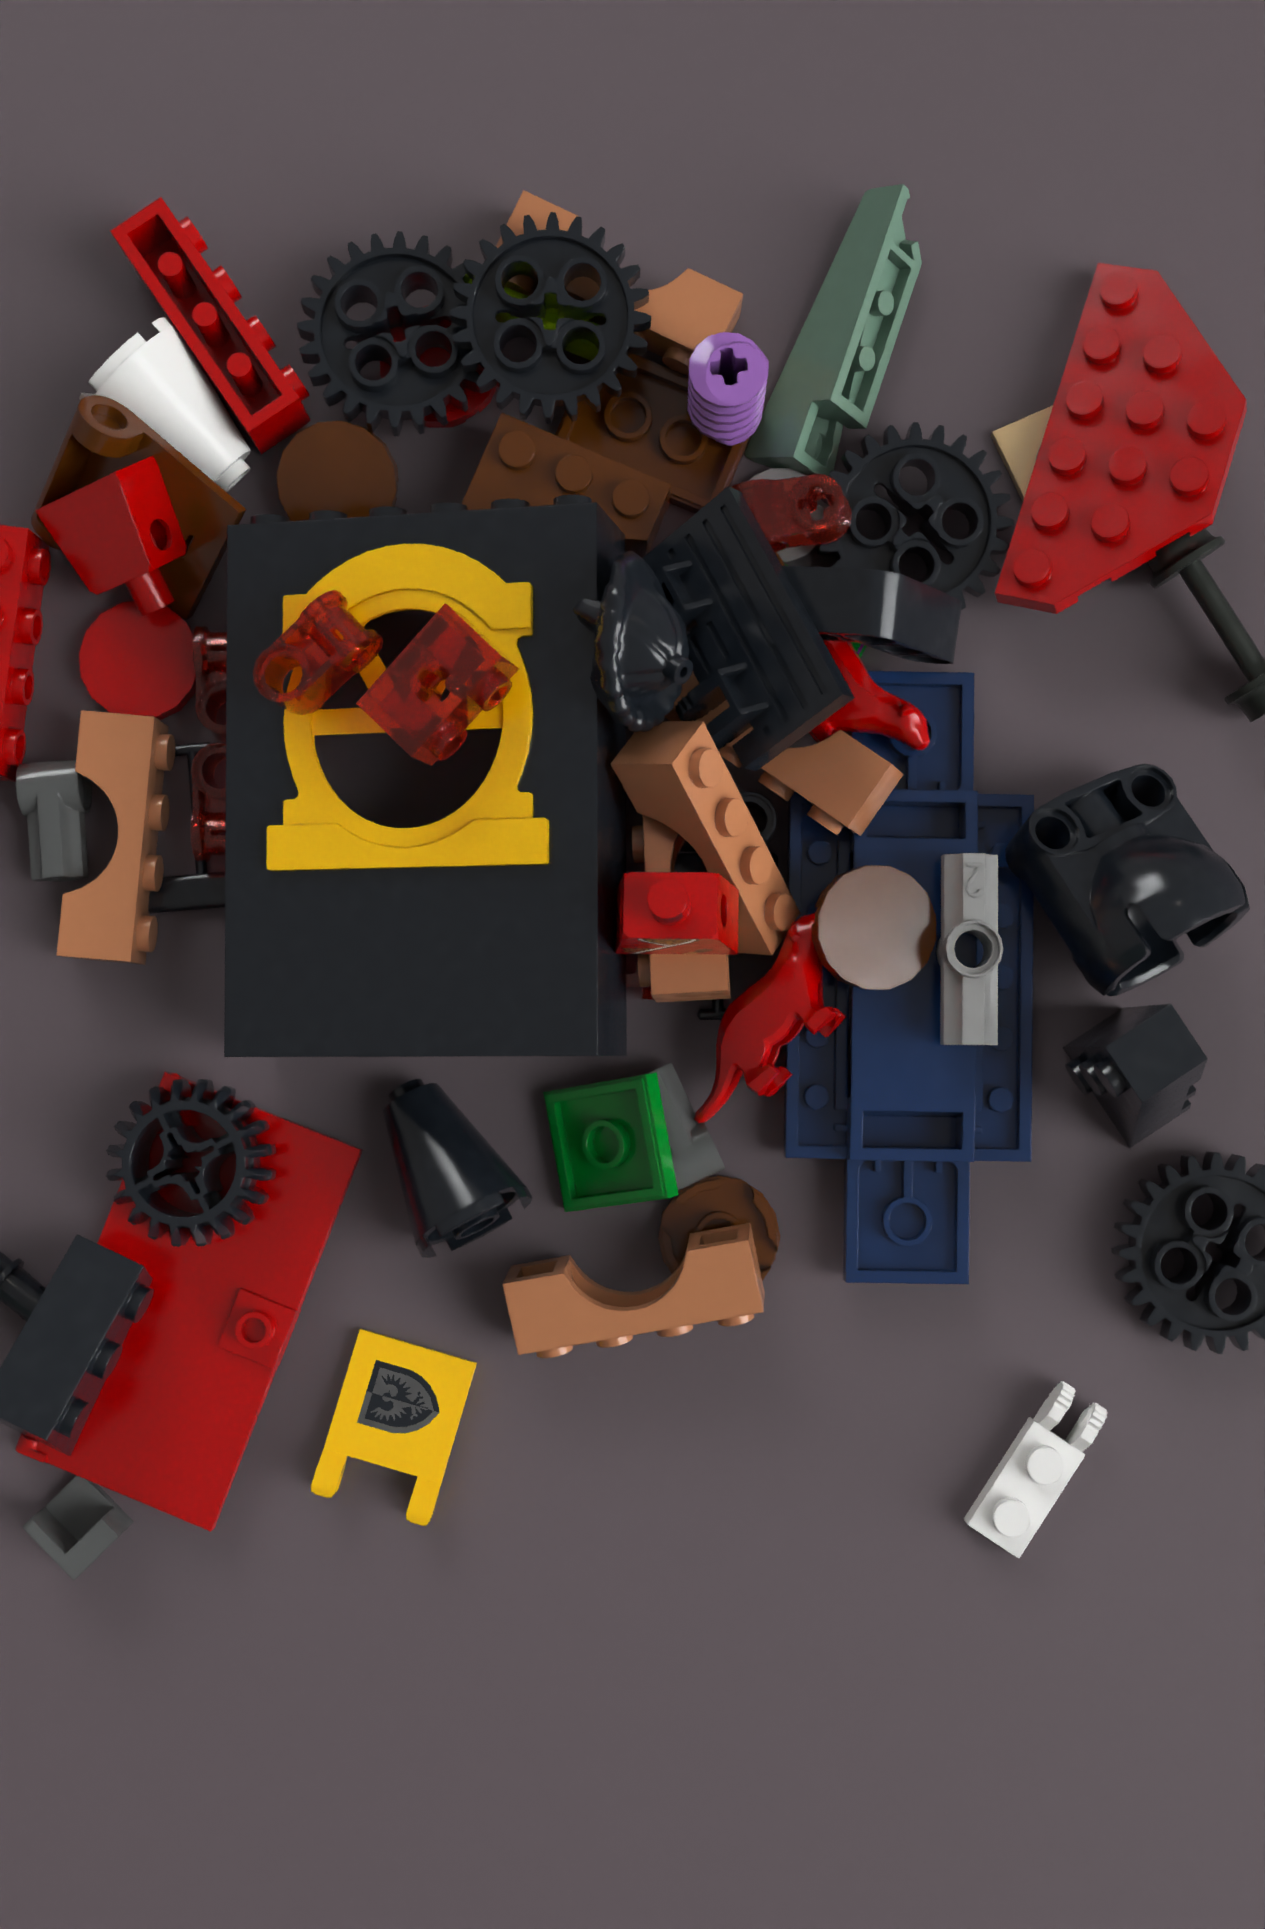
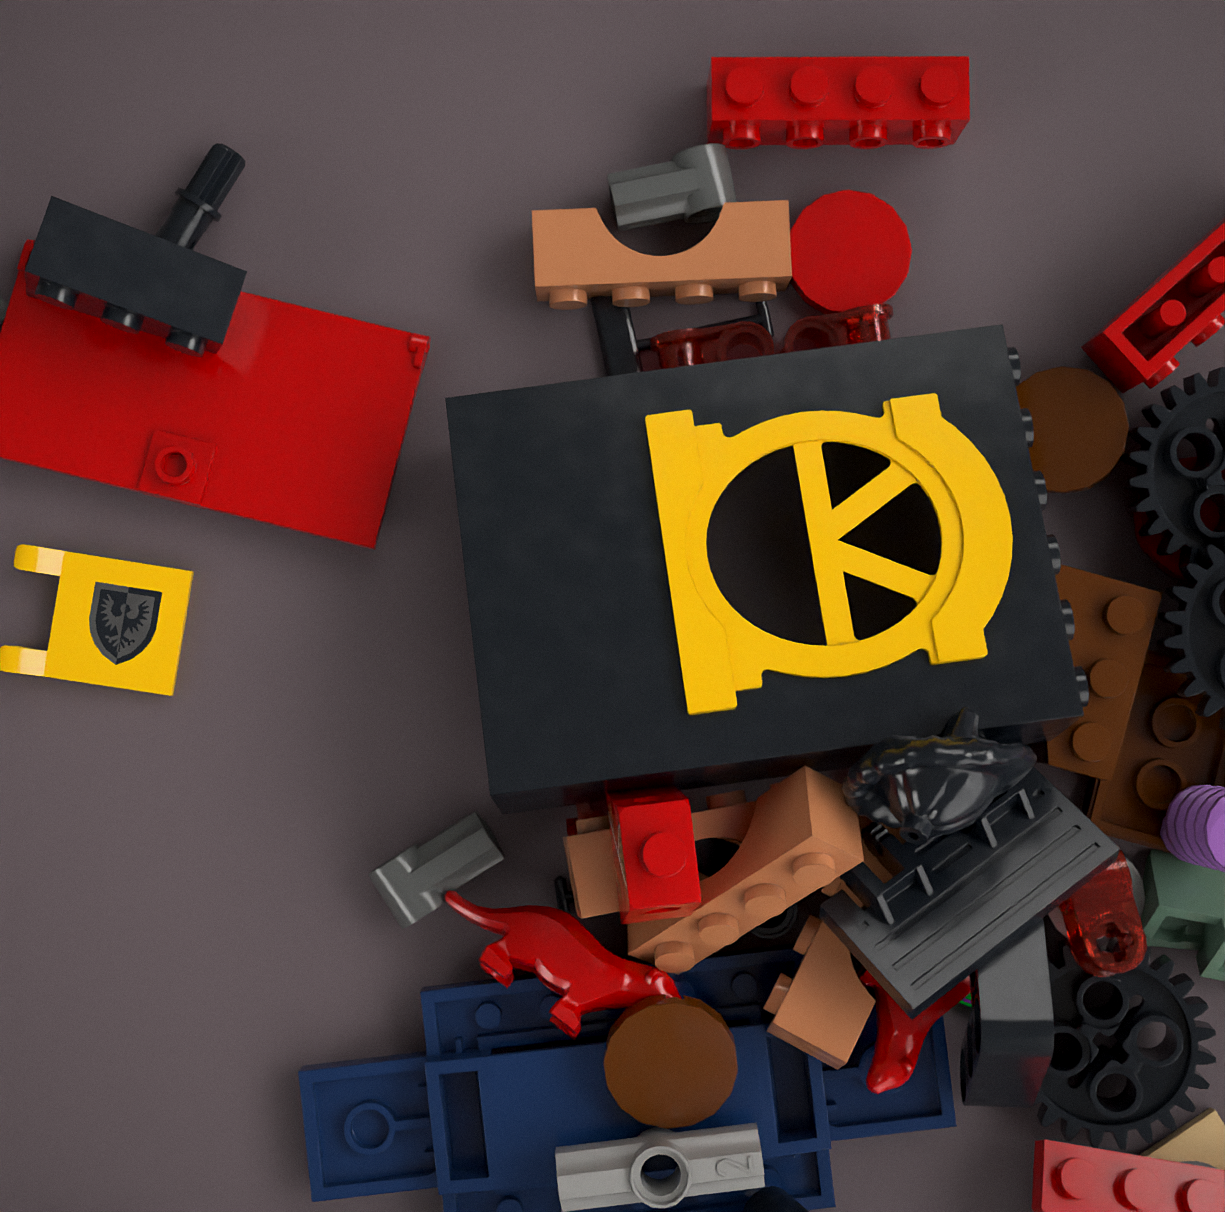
camera: 80 degrees right, 0 degrees up
(111, 437) = (1013, 227): reddish brown door -> none
(120, 533) = (978, 214): red torso -> none
(143, 1183) = (316, 389): black gear -> none
(175, 399) = (1116, 246): white cone -> none
(321, 653) = (881, 441): clear red piece -> none
(406, 694) = (838, 544): clear red brick -> none
(447, 1169) = (364, 640): black cone -> none
(561, 1307) = (234, 781): nougat arch -> none
(611, 1143) = (412, 807): green tile -> none
(716, 1204) = (331, 930): reddish brown tile -> none

